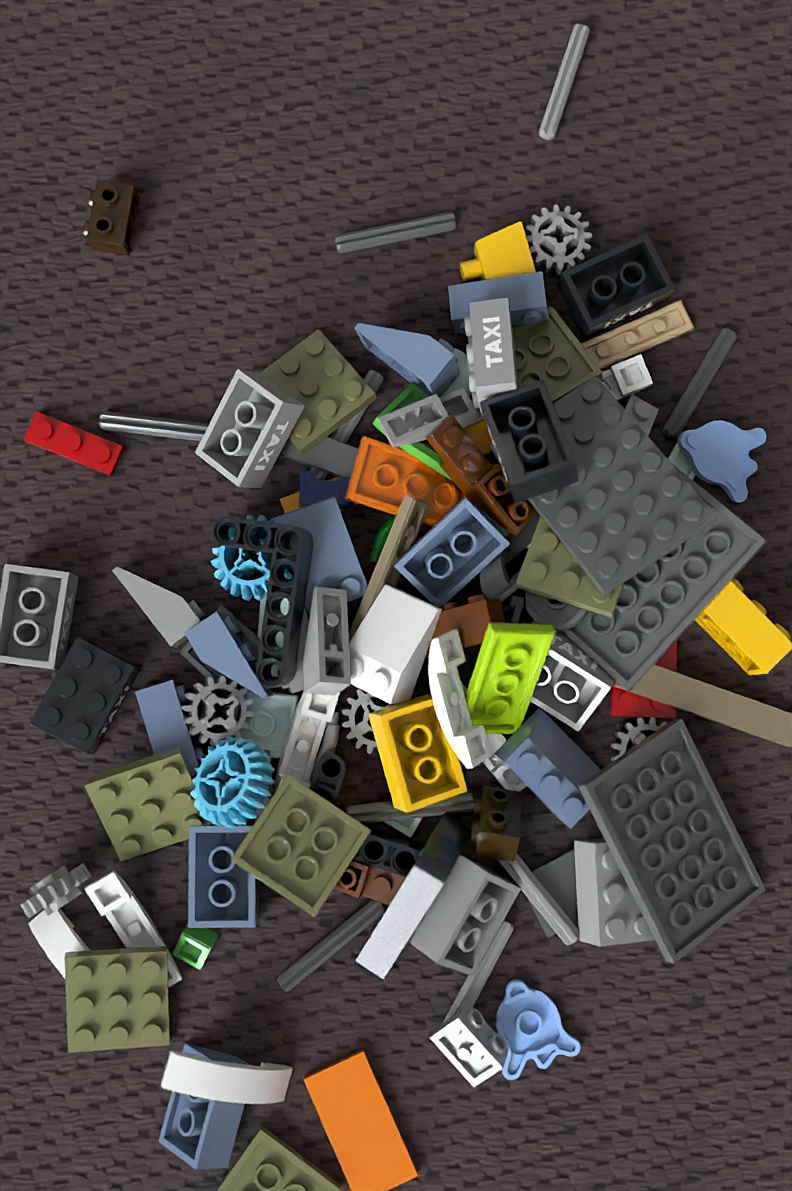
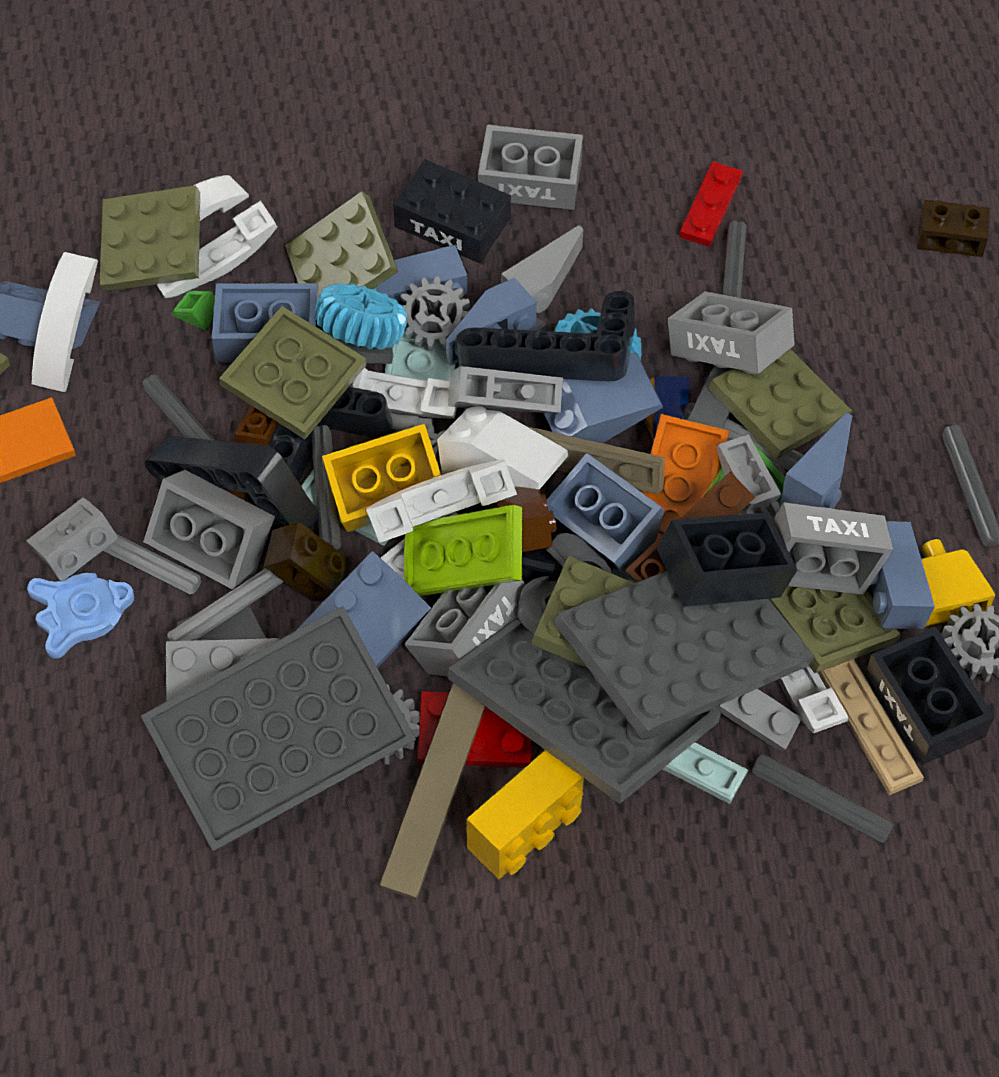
camera: 90 degrees right, 25 degrees down
(56, 890) = (260, 182): light grey gear -> none
(722, 455) = (733, 816): light blue tile -> none

